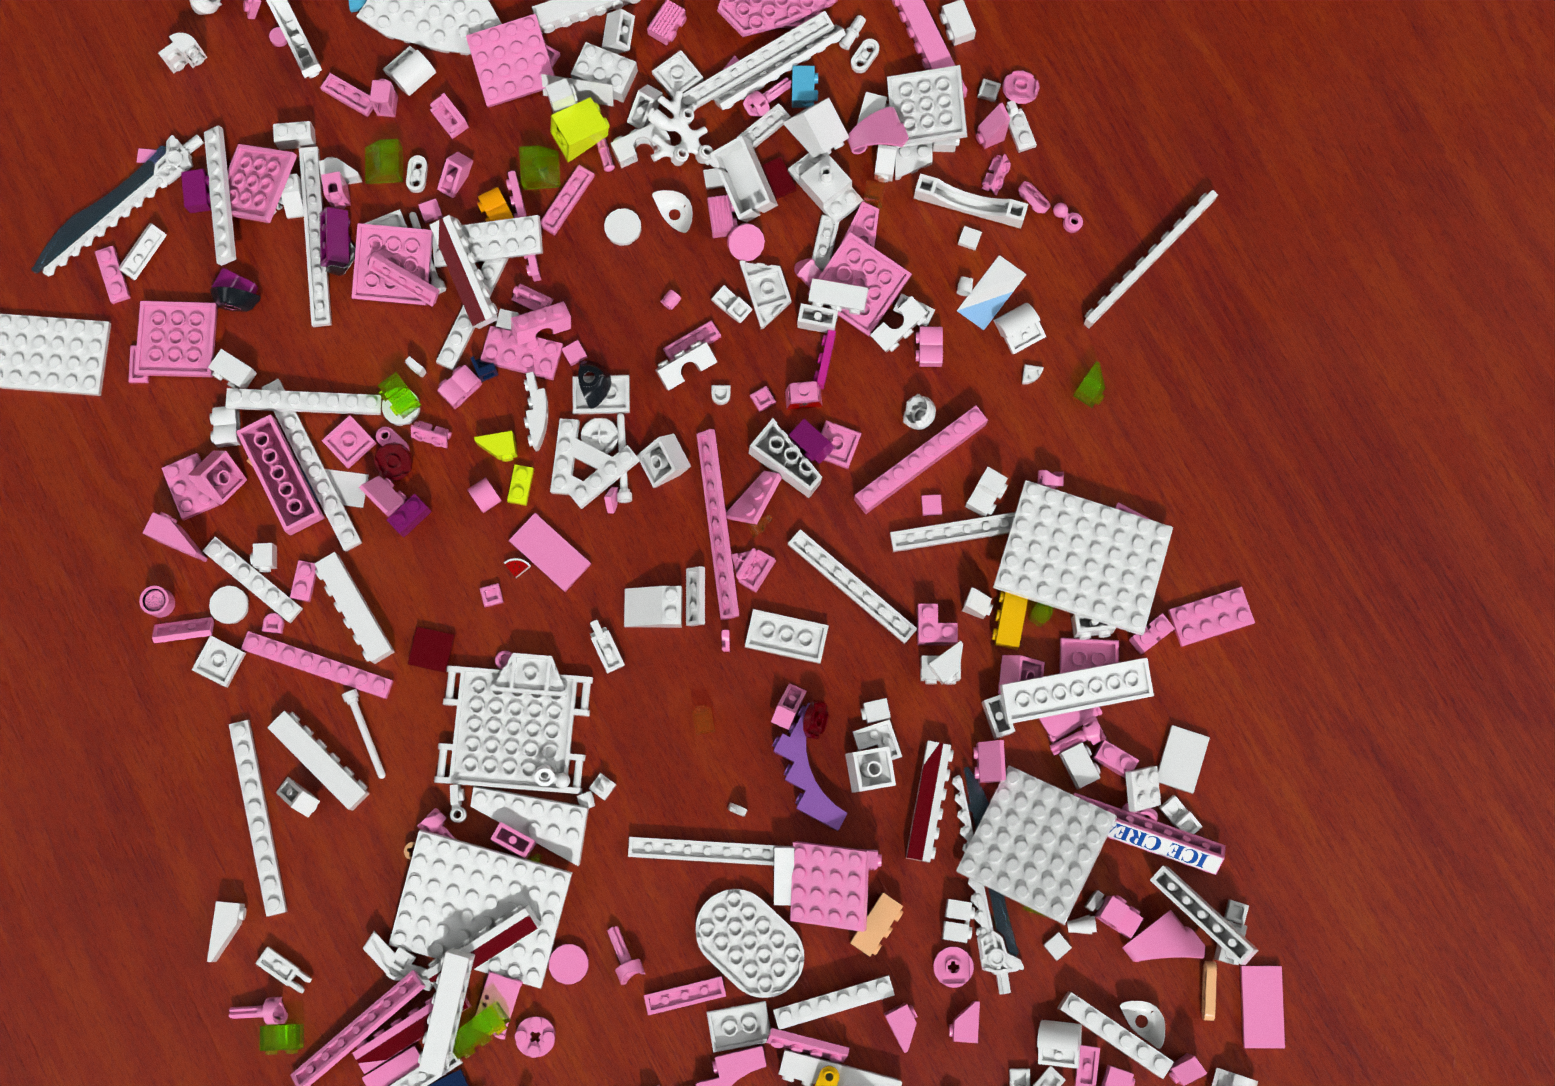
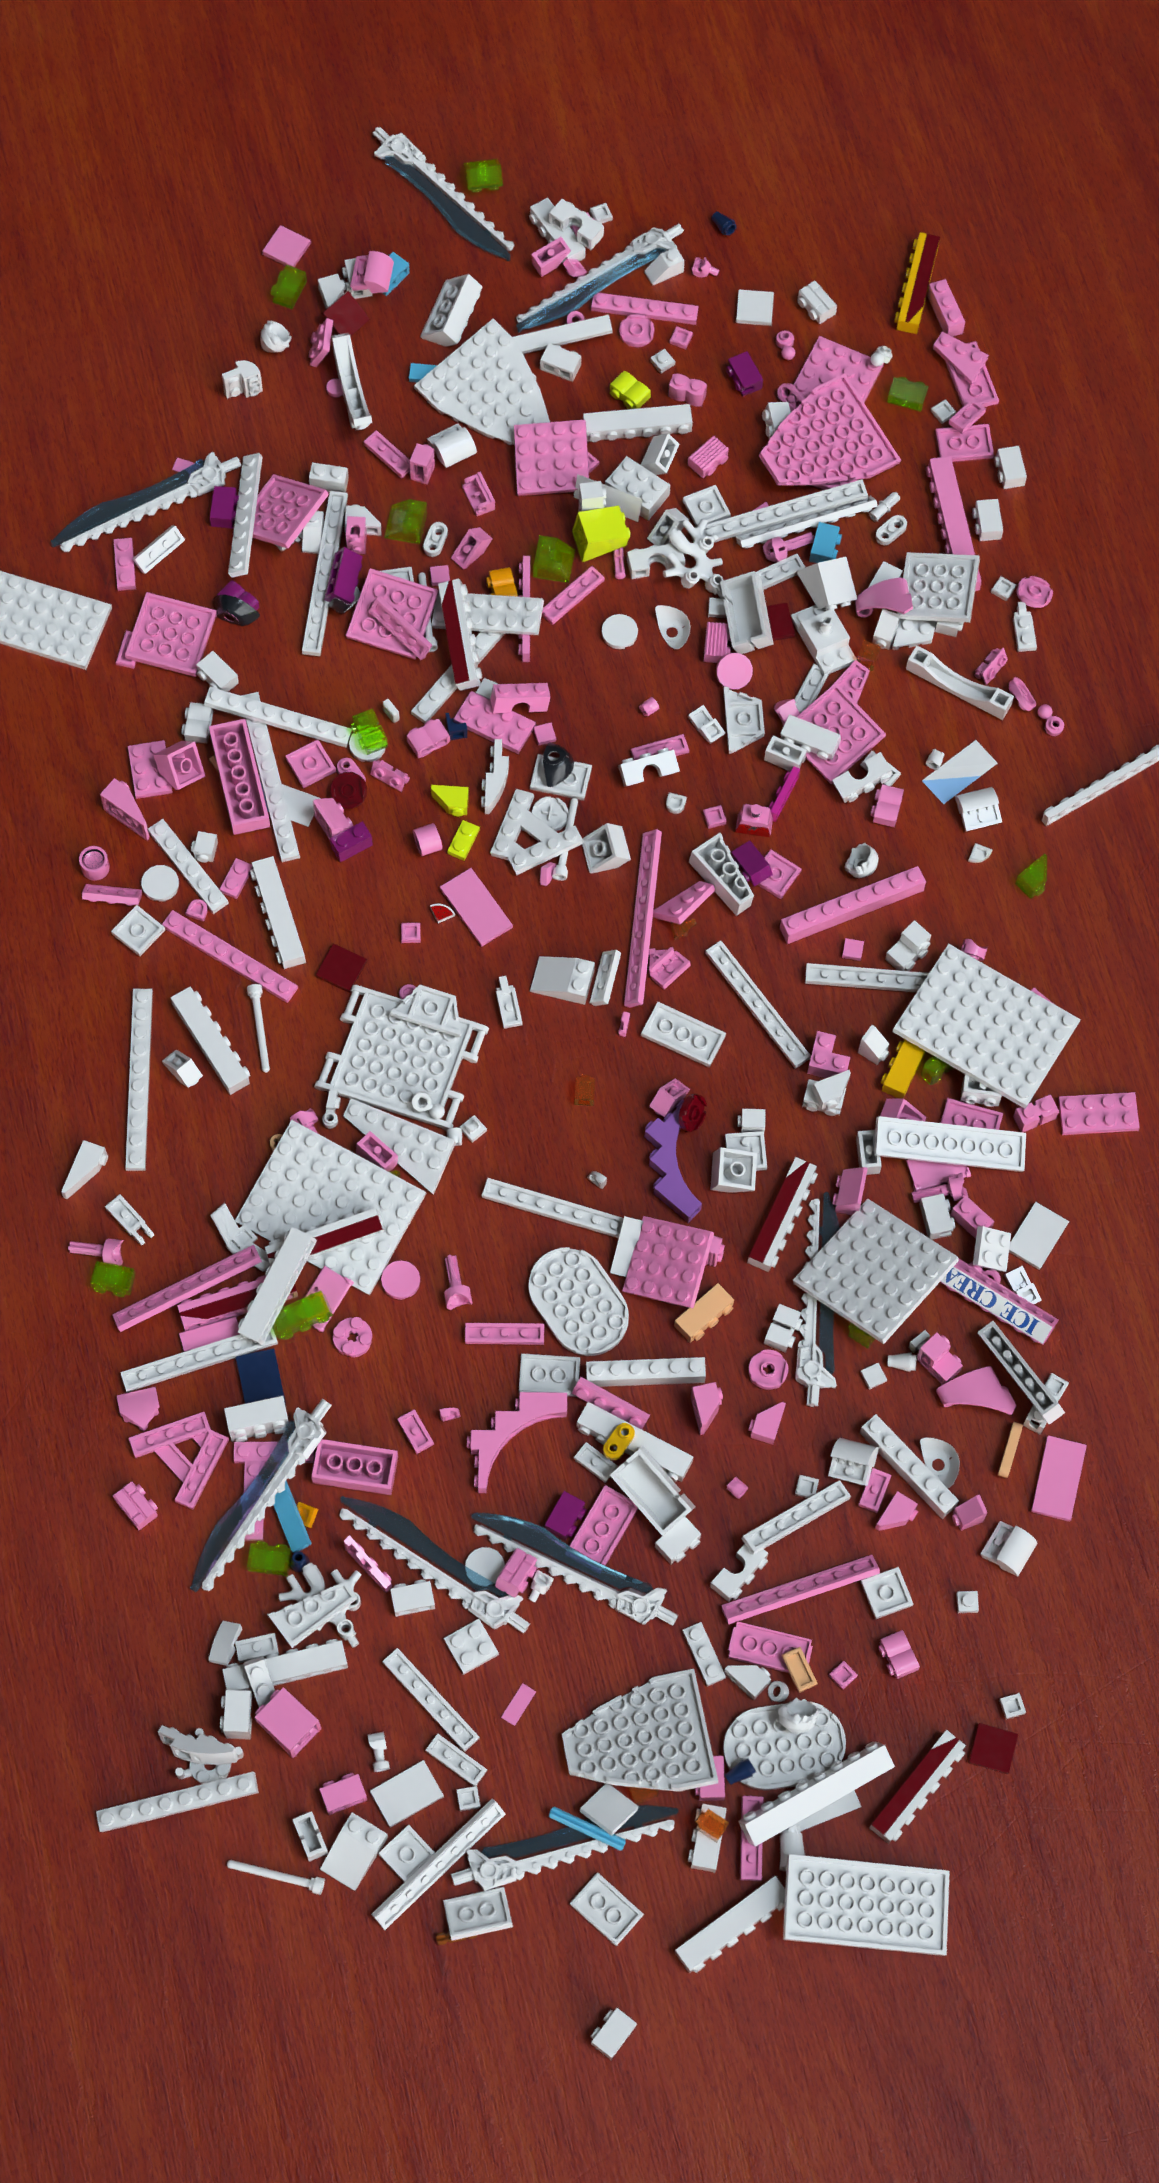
camera: 10 degrees right, 10 degrees down
(530, 298) = (514, 674): bright pink hinge -> none
(969, 238) = (950, 717): white tile -> none
(994, 127) = (998, 620): bright pink slope -> none

